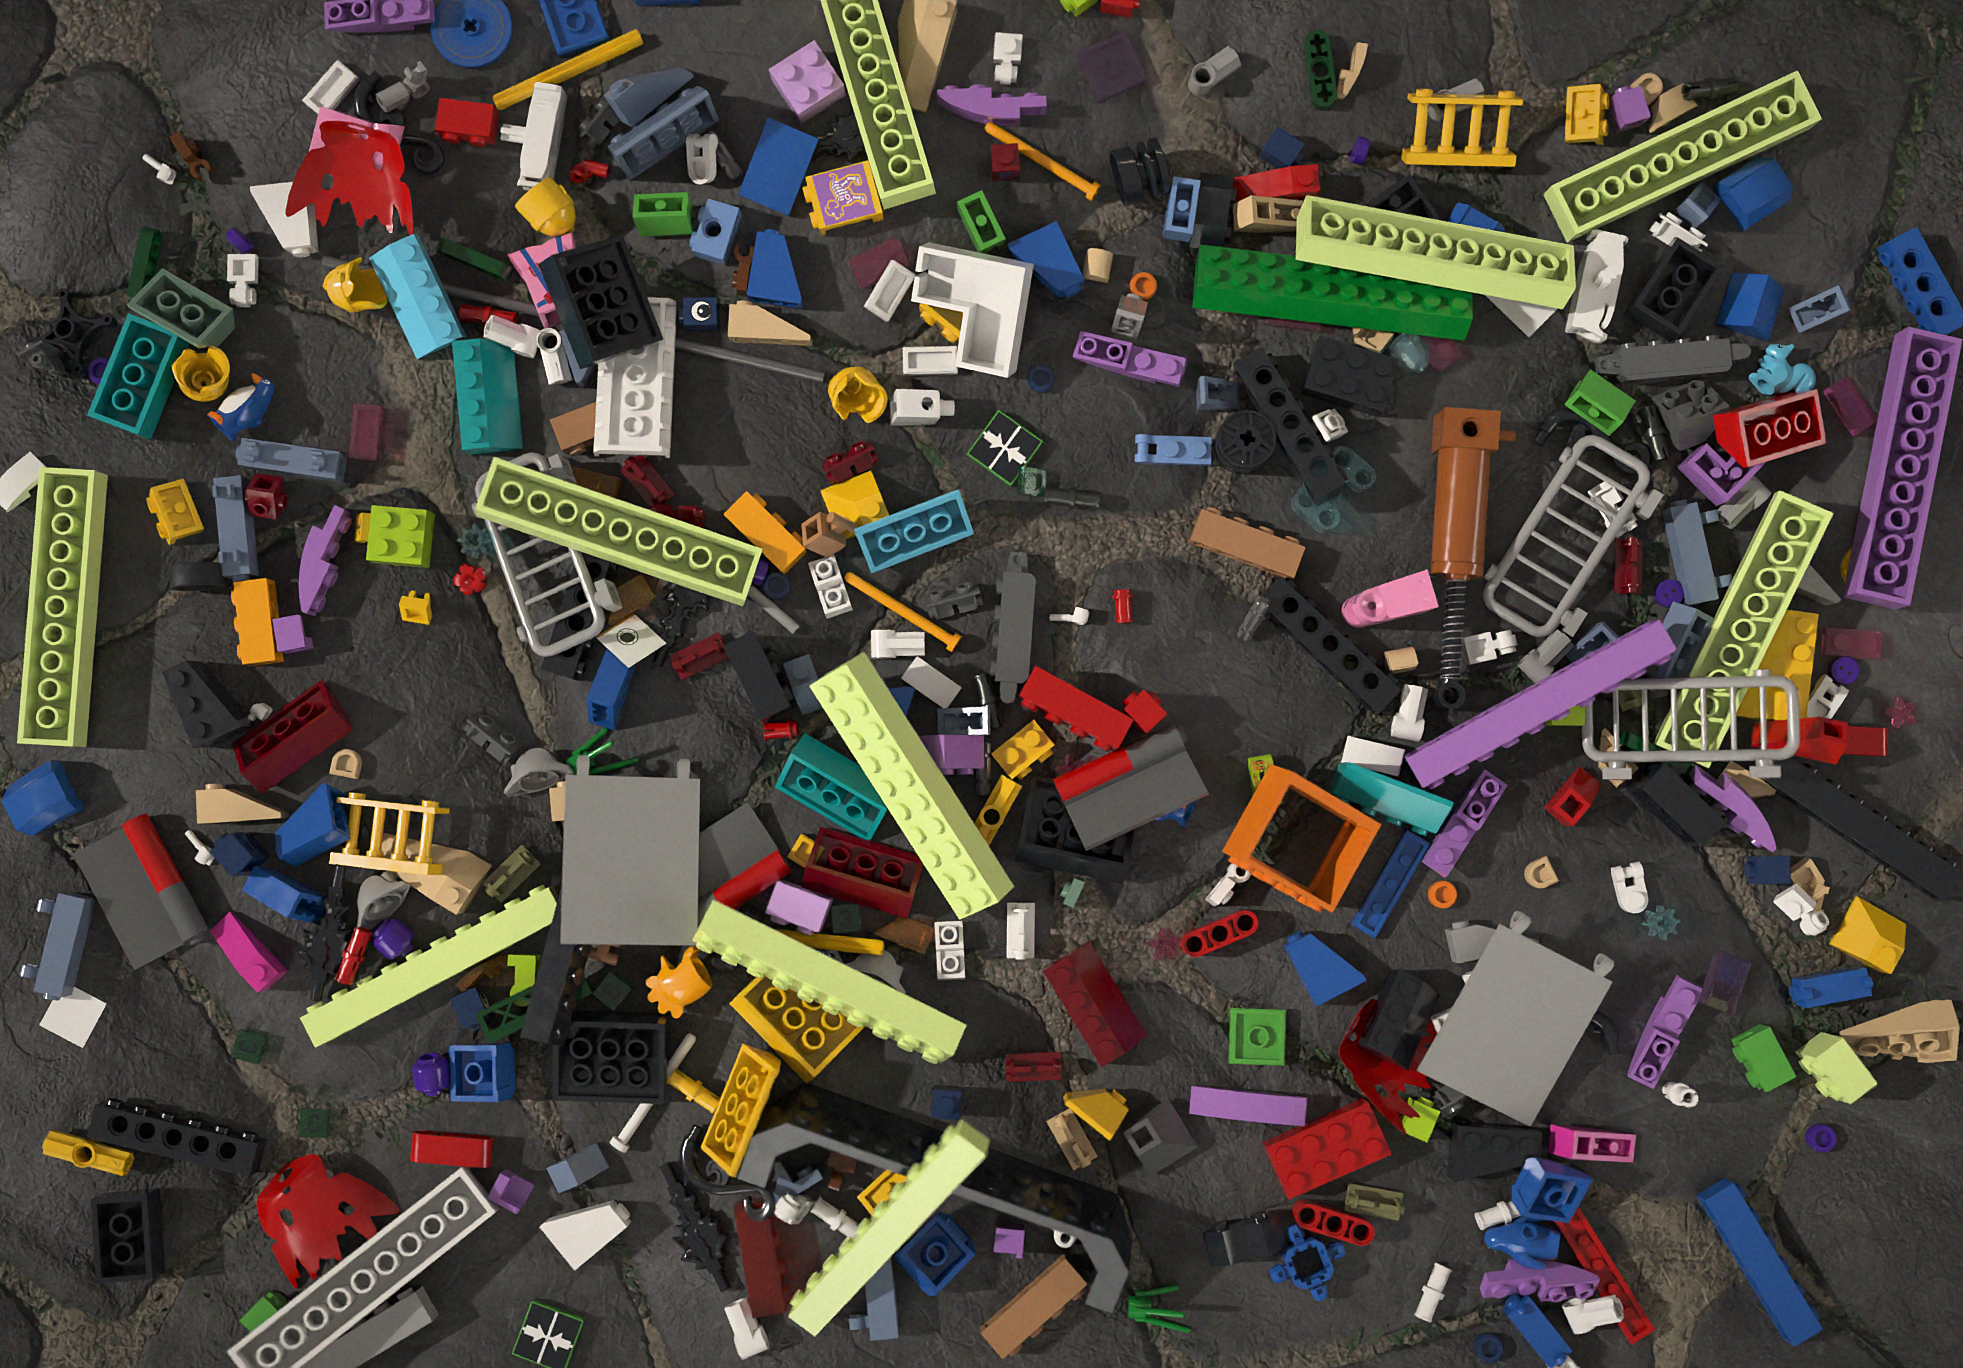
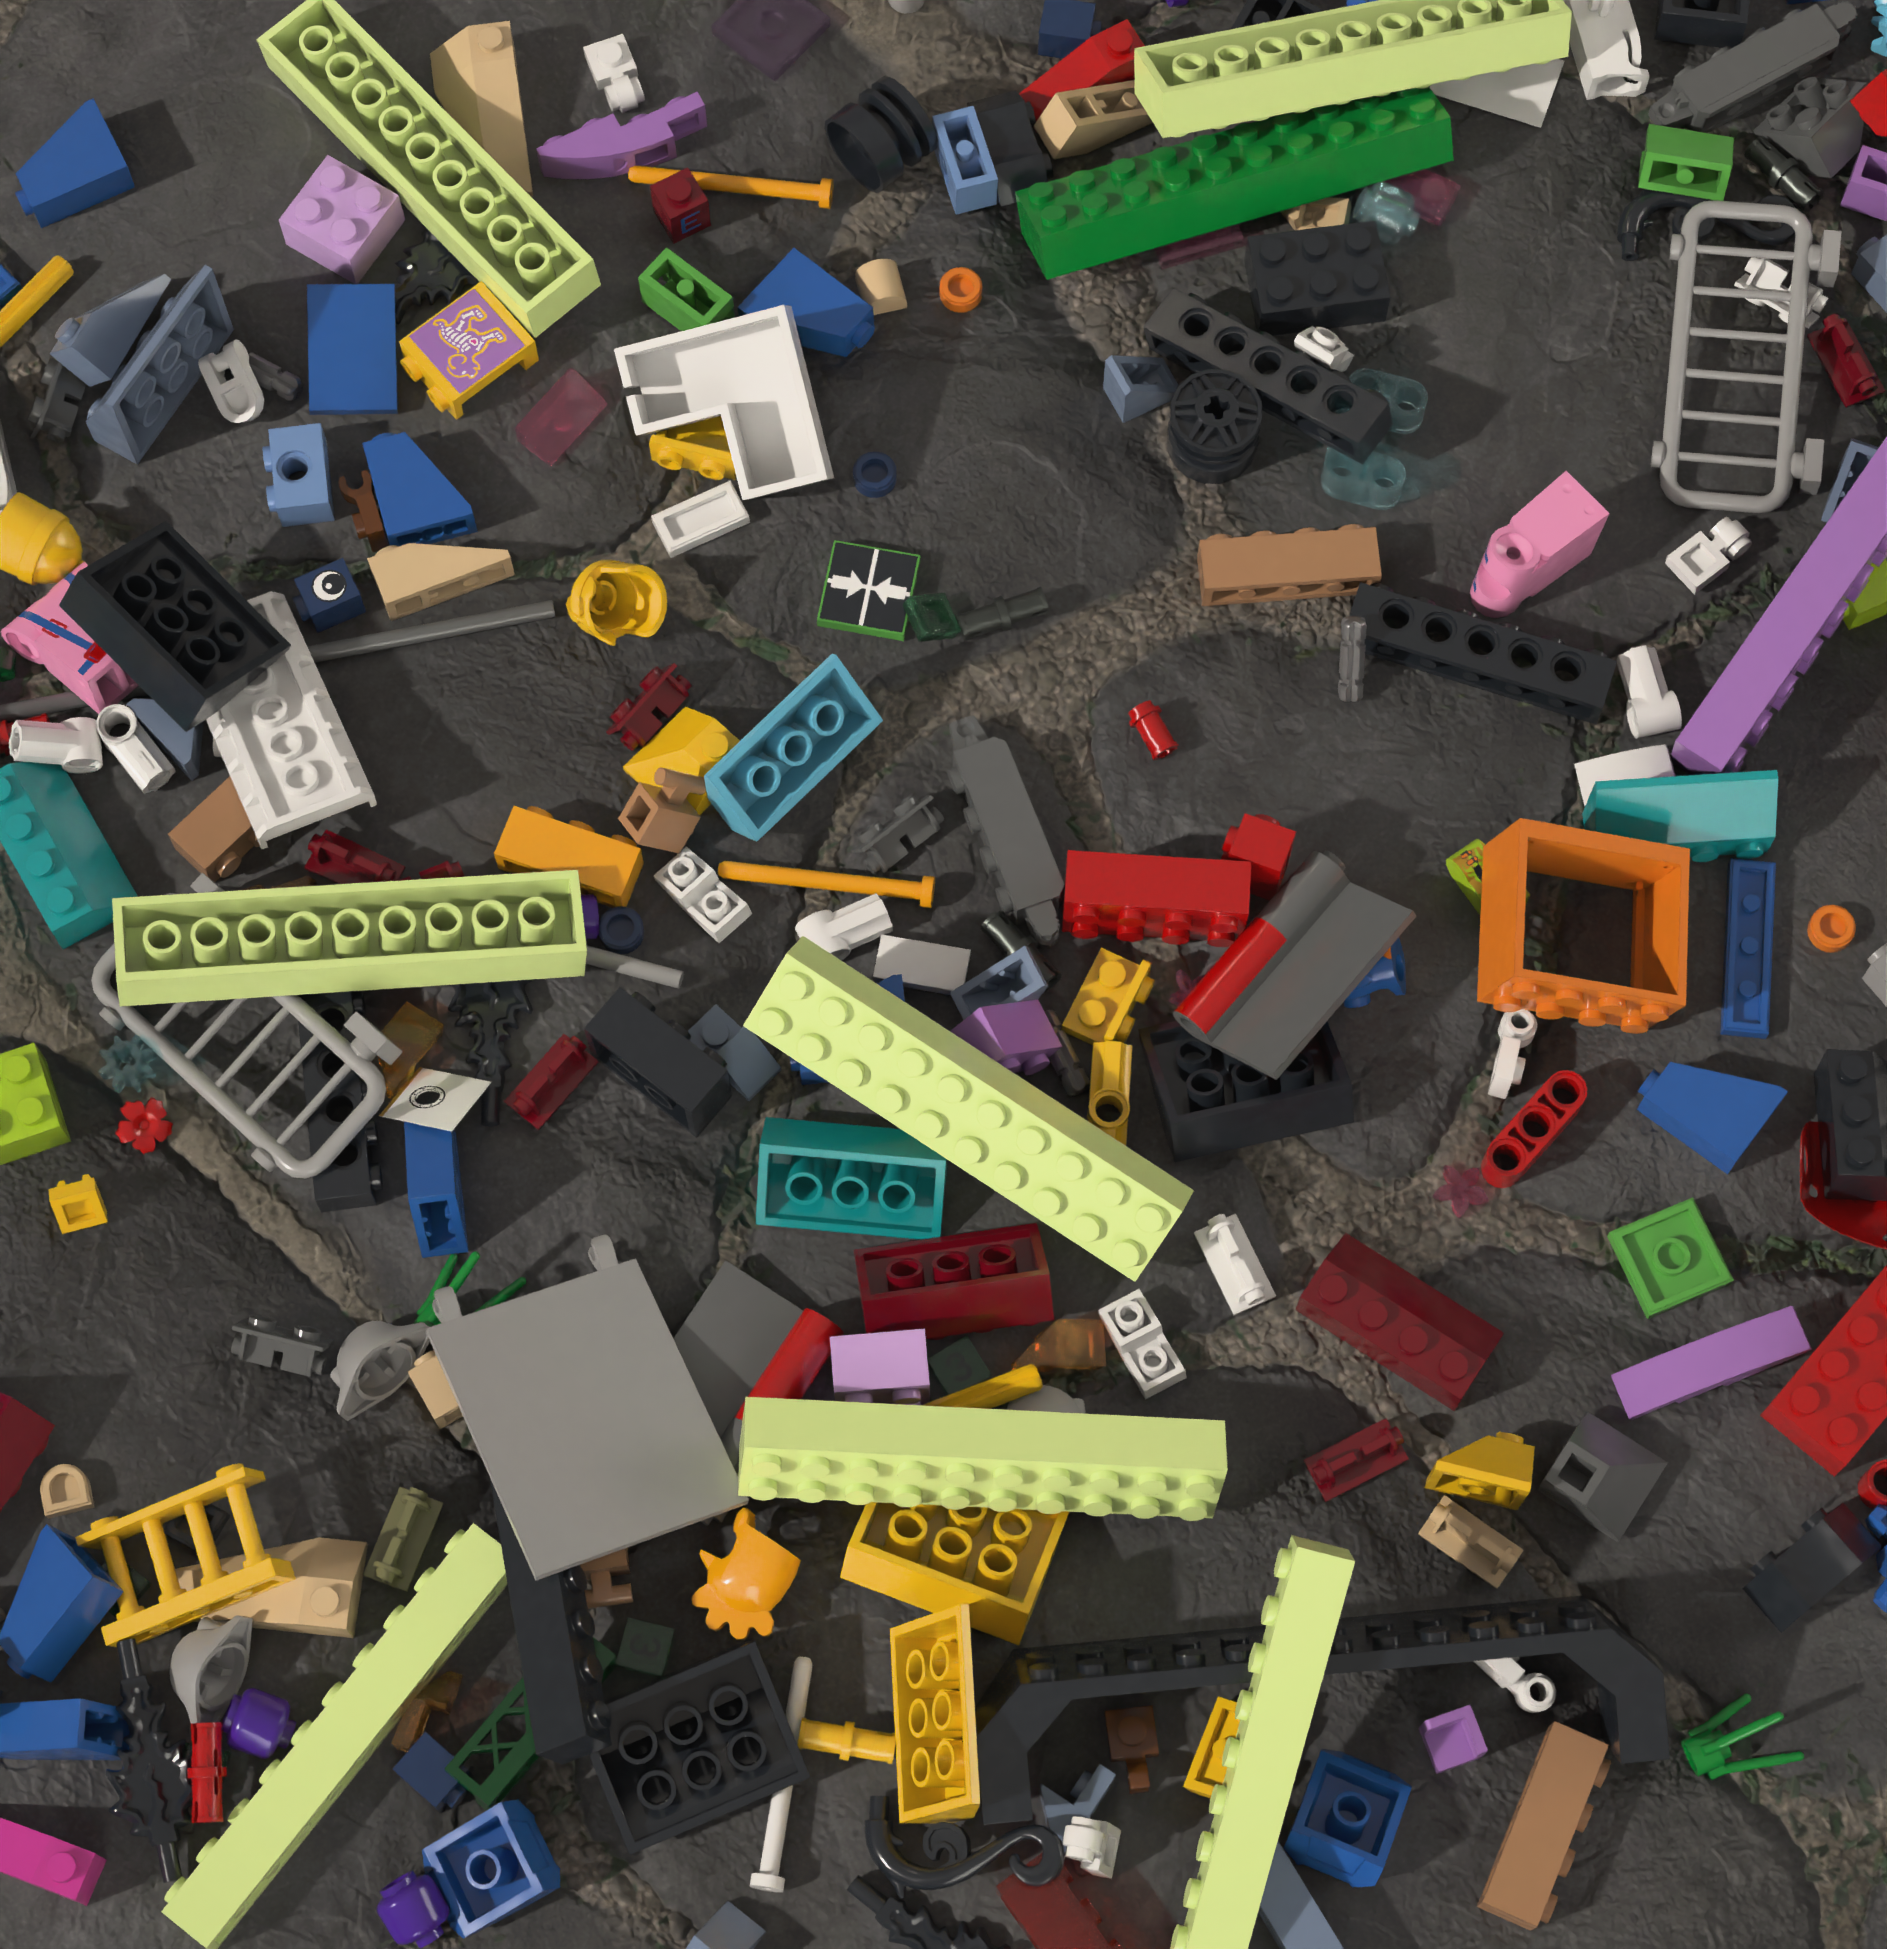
camera: 25 degrees left, 15 degrees down
(525, 973) = (497, 1678): lime leg -> none
(588, 168) = (68, 471): red arm -> none
(663, 214) = (211, 480): bright green brick -> none
(782, 729) = (726, 1132): red pin -> none
(802, 849) = (844, 1298): yellow tile -> none
(834, 1217) = (1160, 1836): white pin -> none
(889, 290) = (595, 447): white tile -> none
(908, 410) = (713, 583): white torso -> none
(946, 1102) = (1249, 1571): dark blue brick -> none
(1071, 891) = (1283, 1169): sand green plate -> none
(1079, 617) = (1096, 777): white hand -> none
(1129, 316) = (963, 332): light grey slope -> none
(1129, 360) = (992, 393): medium lavender slope -> none
(1174, 450) = (1117, 487): medium blue plate -> none
(1400, 660) = (1595, 627): tan brick -> none
(1460, 521) = (1526, 293): dark orange piece -> none
(1463, 823) = (1807, 809): medium lavender slope -> none
(1541, 661) = (1797, 528): light grey piece -> none

